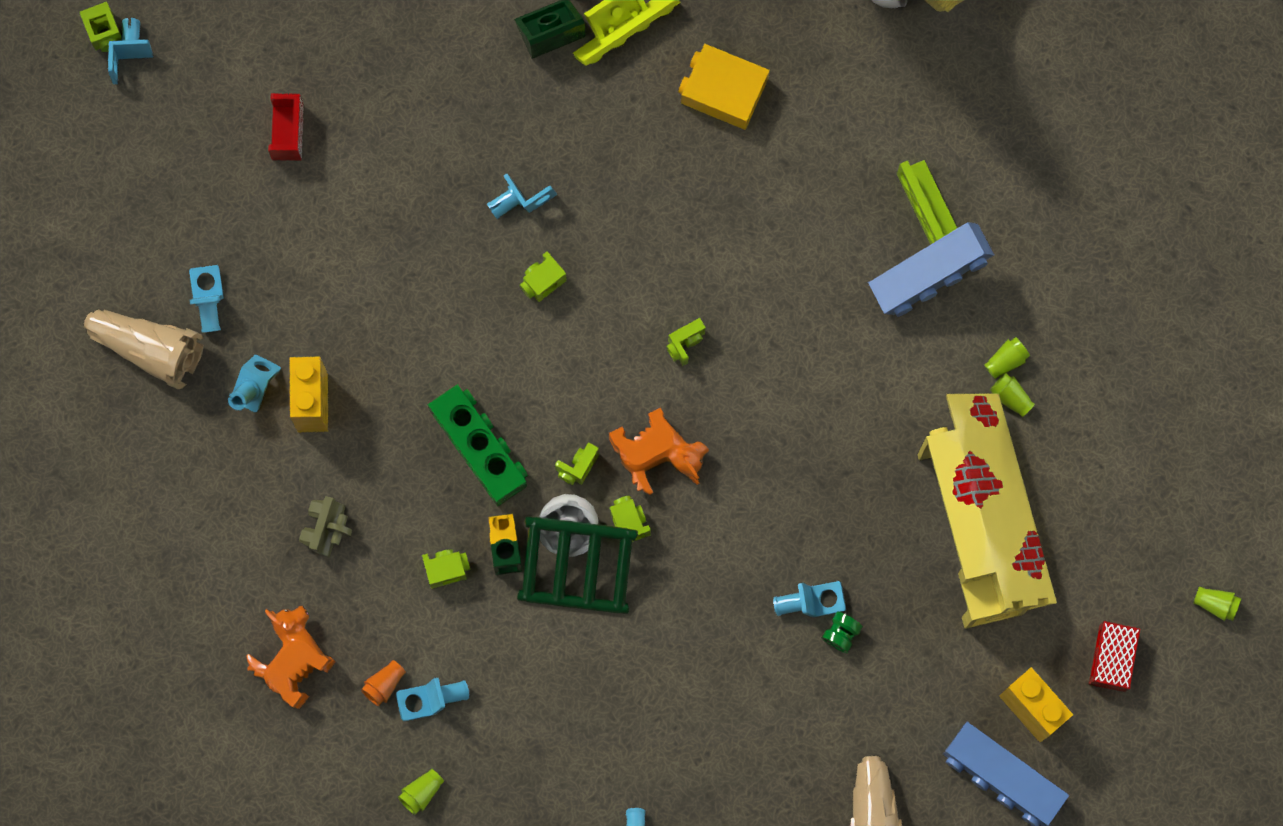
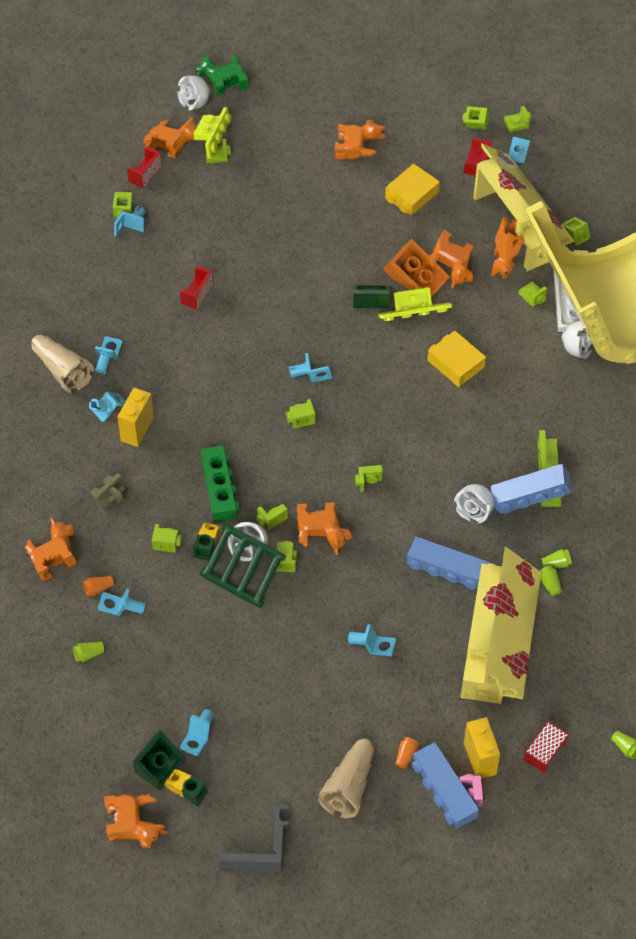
camera: 25 degrees right, 20 degrees down
(842, 632) = (383, 666): green wheel -> none
(857, 317) = (472, 499): none -> white cylinder
(860, 432) = (445, 562): none -> medium blue brick
(931, 748) = (405, 752): none -> orange cone
(1049, 766) = (474, 787): none -> bright pink bracket

